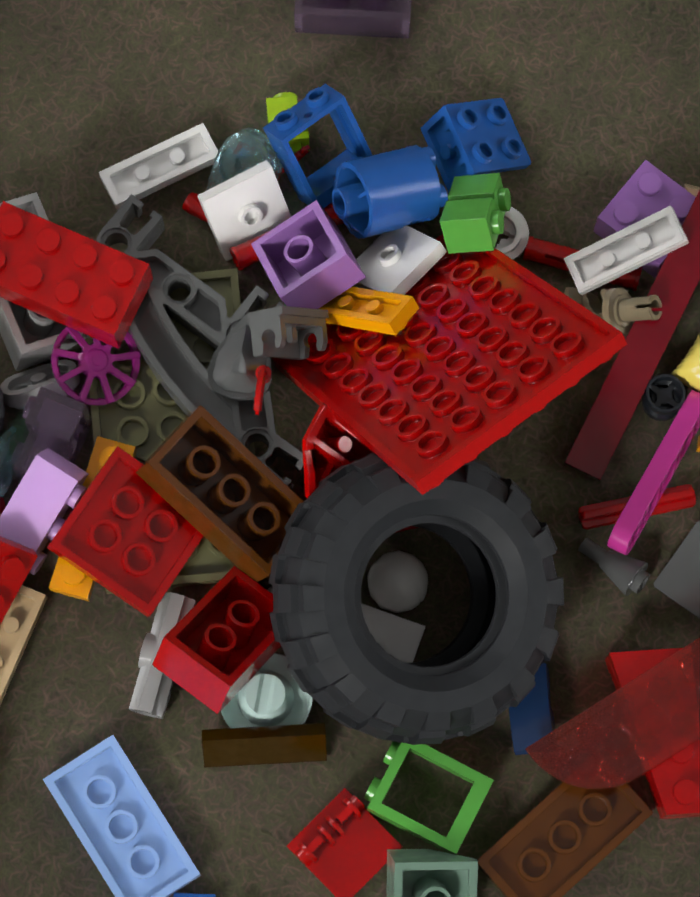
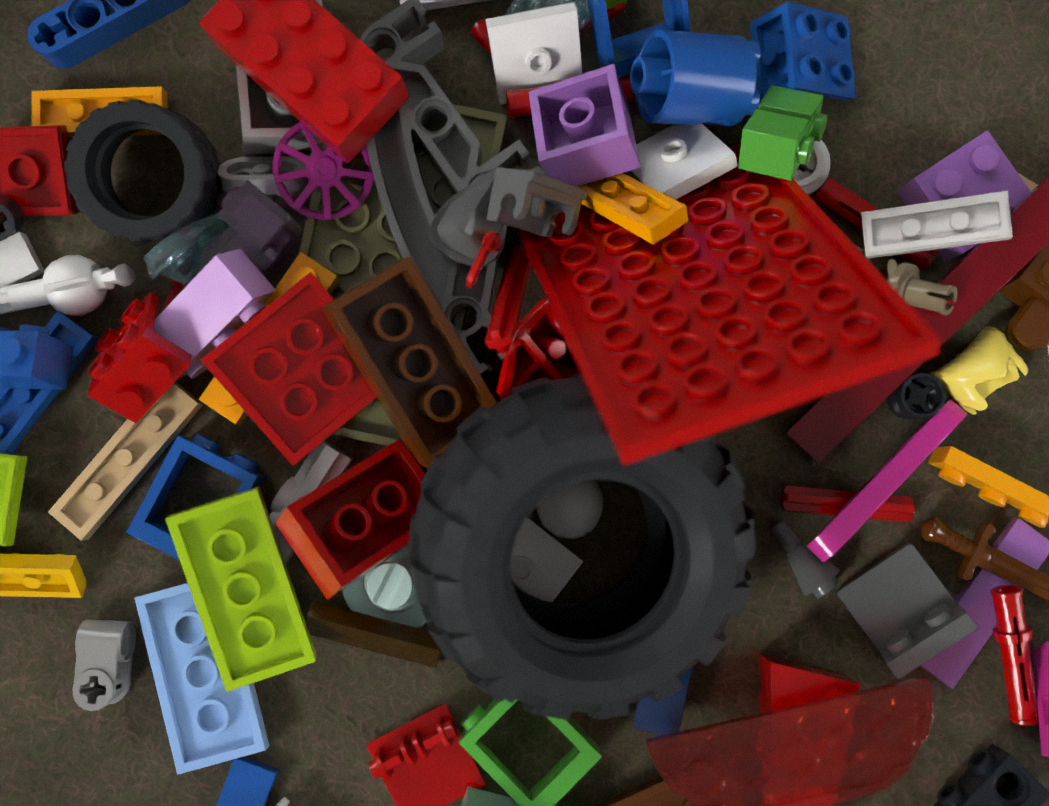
camera: 20 degrees right, 10 degrees up
(32, 837) = (105, 658): none -> light grey piece
(64, 720) = (156, 532): none -> blue window
(140, 733) = (242, 588): none -> lime plate
(291, 417) = (508, 302): none -> red axle

